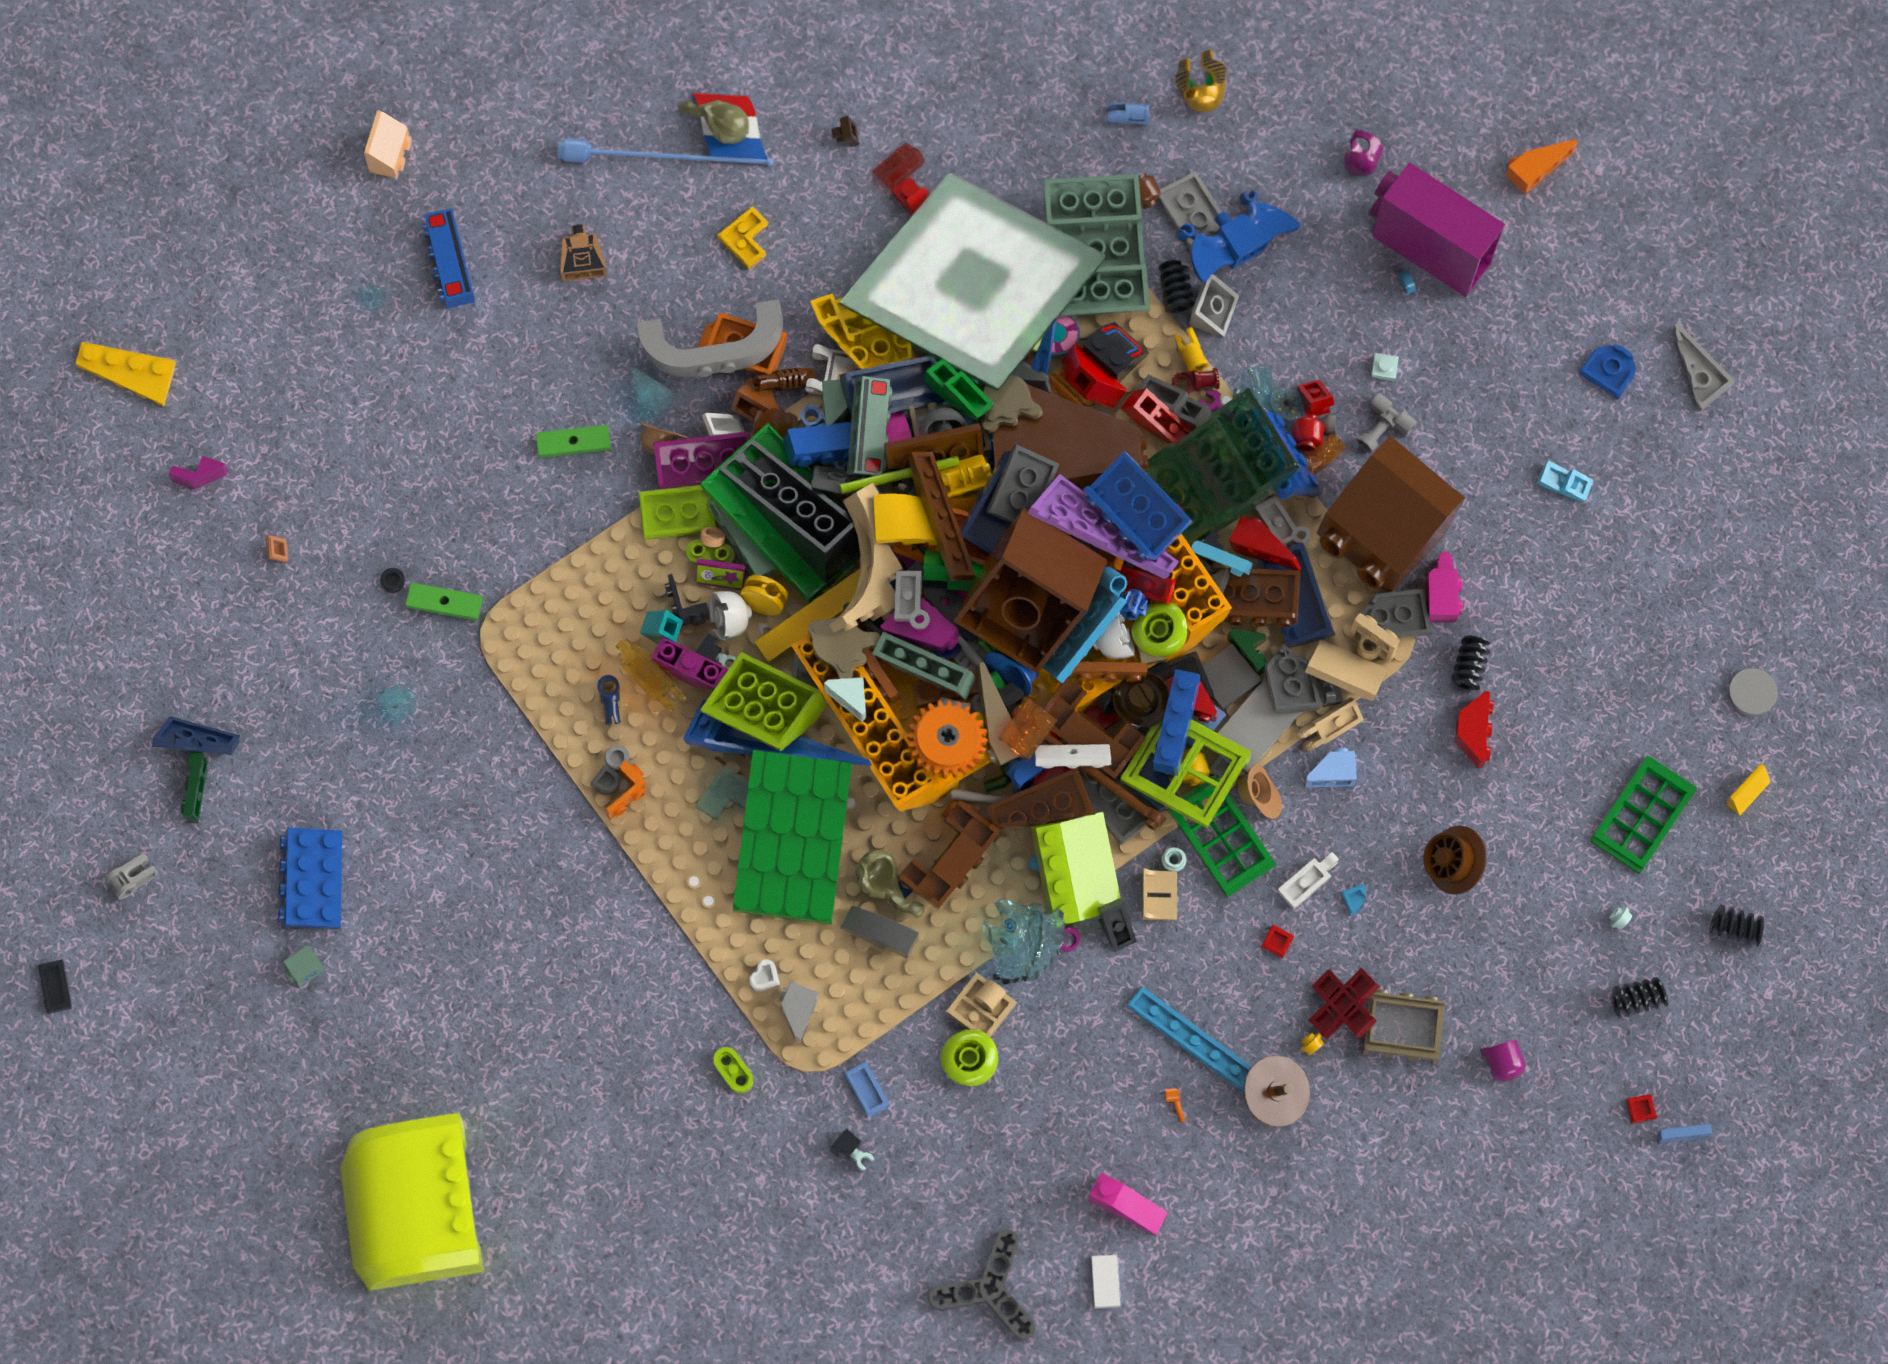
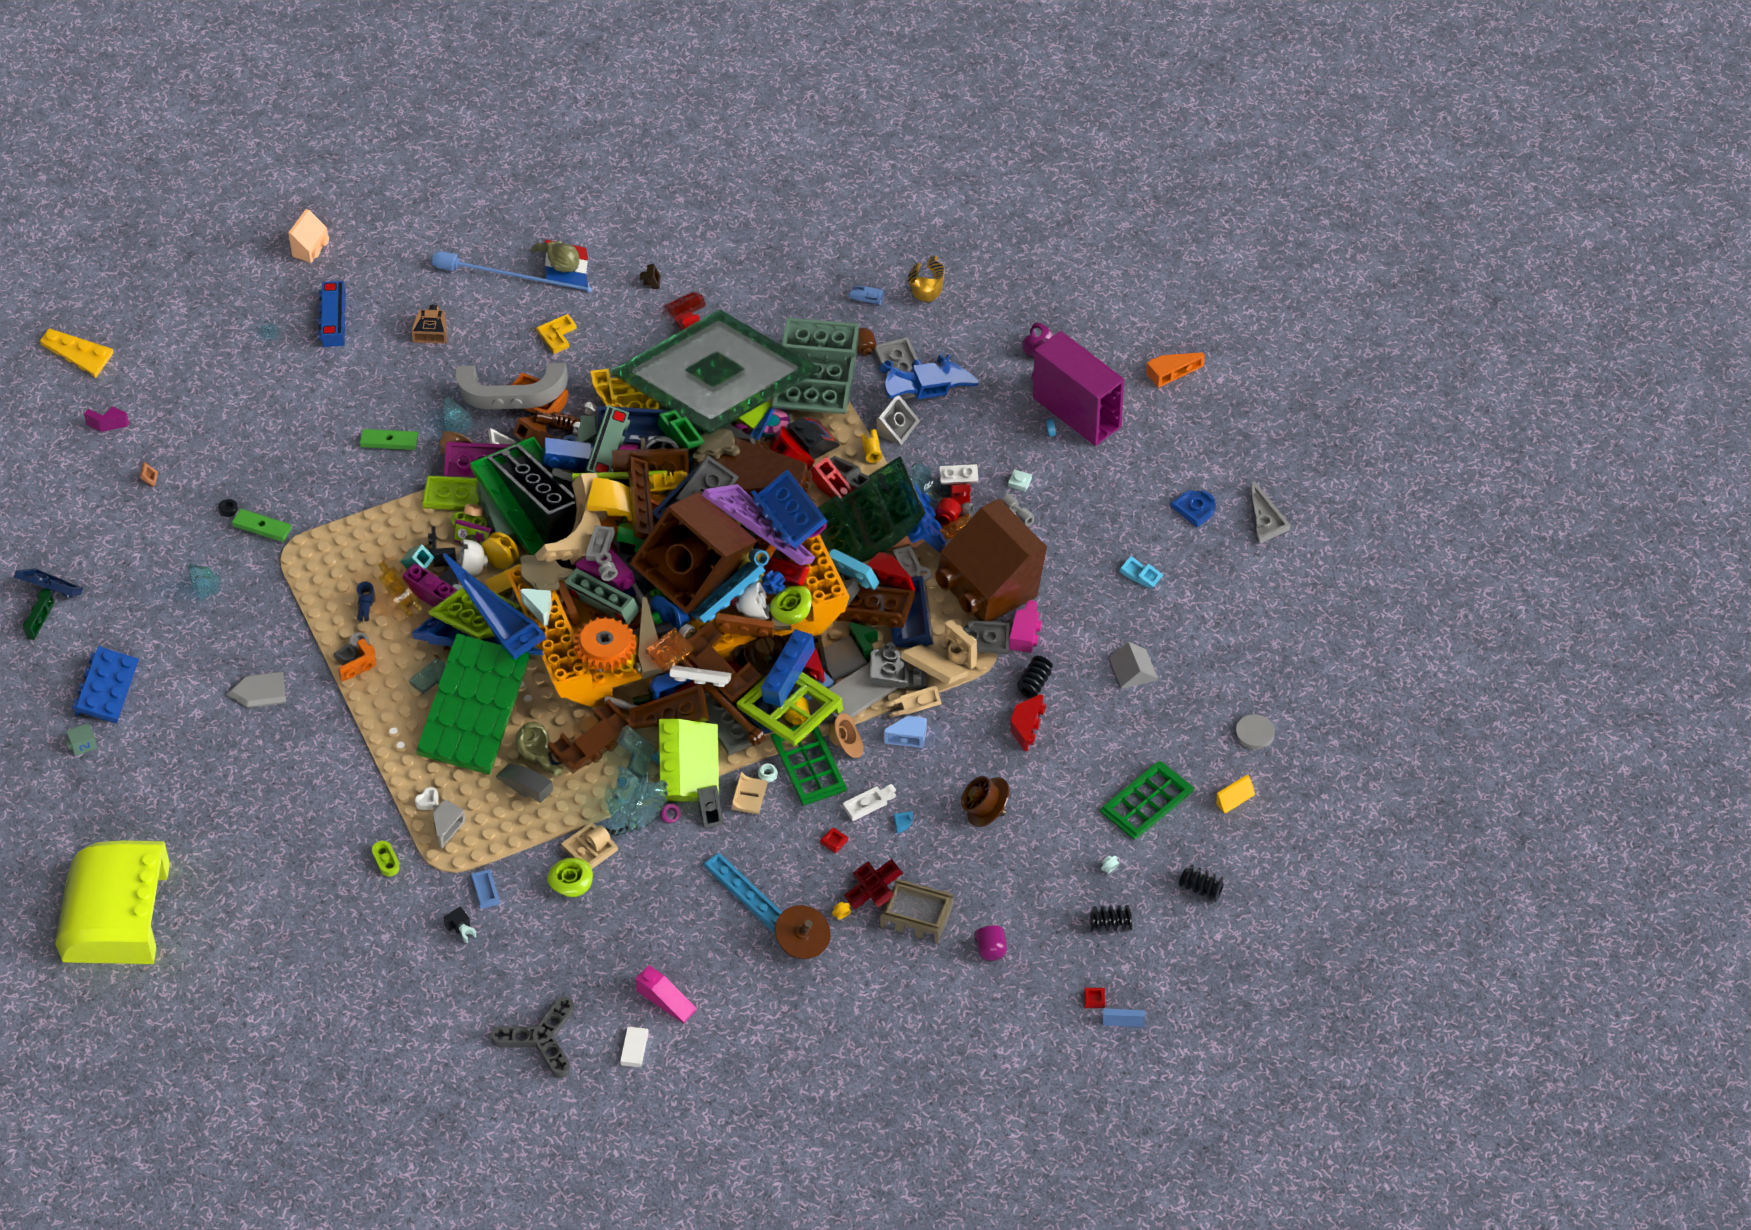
camera: 15 degrees right, 20 degrees down
(508, 848) = (260, 690): none -> light grey tile
(822, 733) = (510, 627): none -> blue plate
(929, 637) = (608, 571): none -> light grey bush
(1015, 865) = (640, 751): none -> clear light blue tile
(1039, 693) = (687, 631): none -> light grey tile
(1173, 1095) = (722, 929): orange hand -> none
(1175, 286) = (871, 404): black piece -> none
(1198, 380) = (869, 464): dark red connector -> none
(1311, 378) = (958, 474): none -> white bracket
(1584, 623) = (1132, 666): none -> light grey slope

